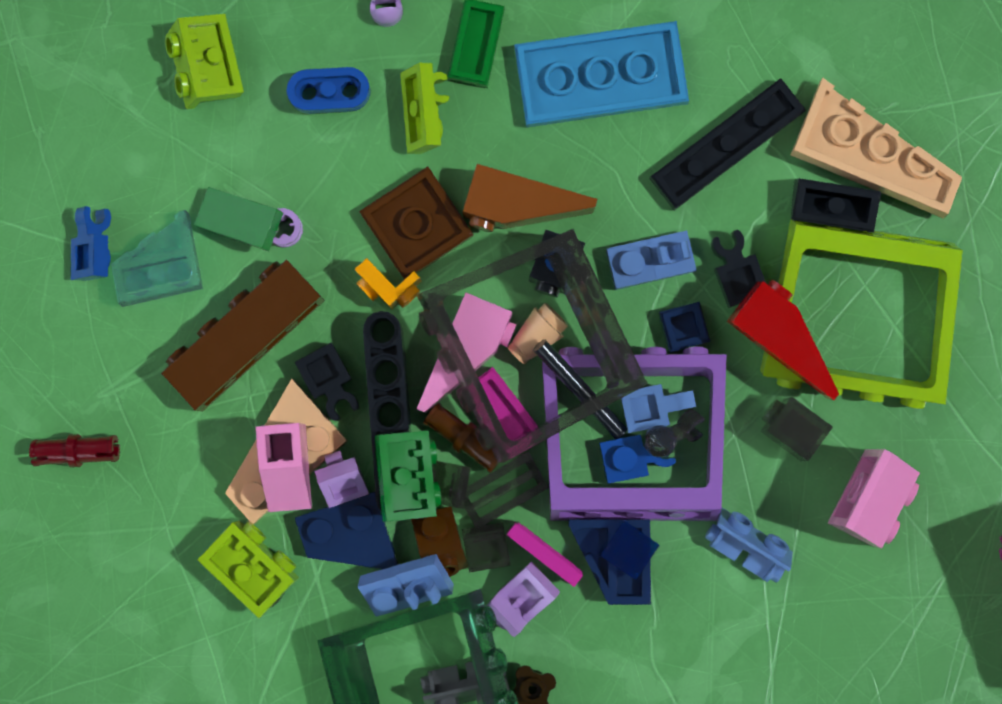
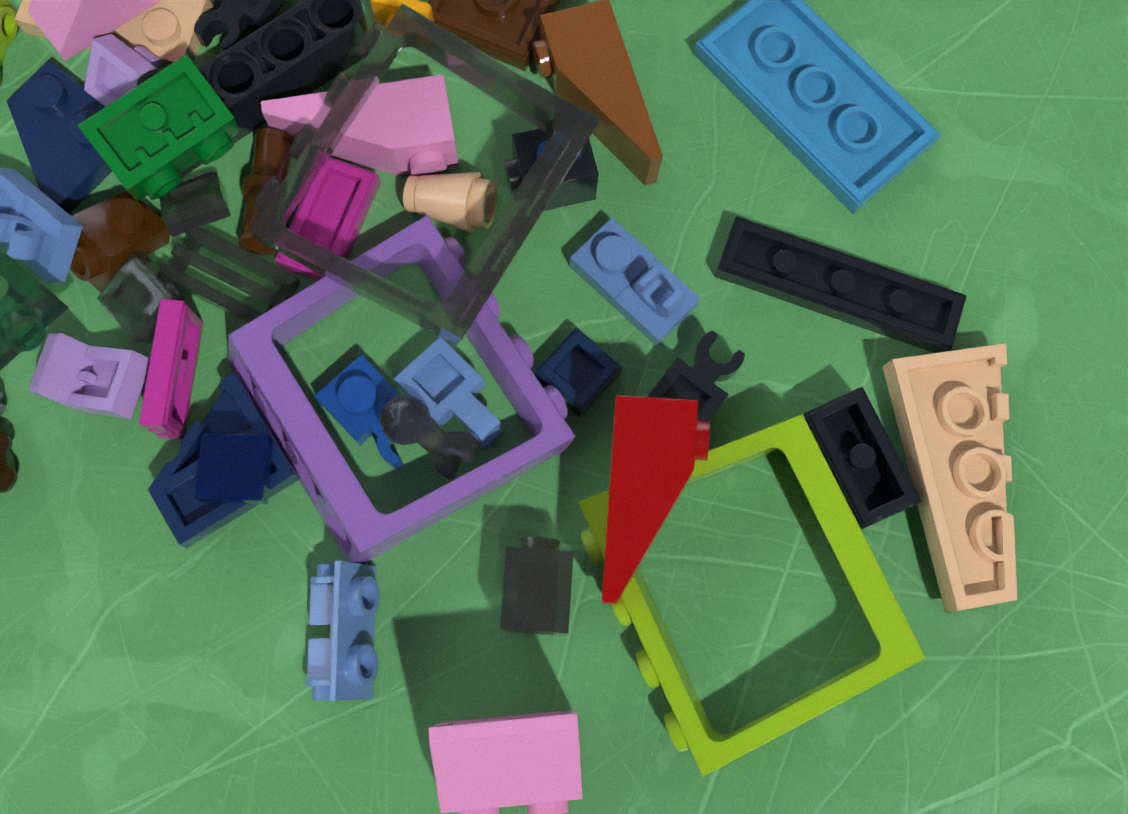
camera: 50 degrees right, 10 degrees down
(578, 387) = (413, 279): black bar -> none

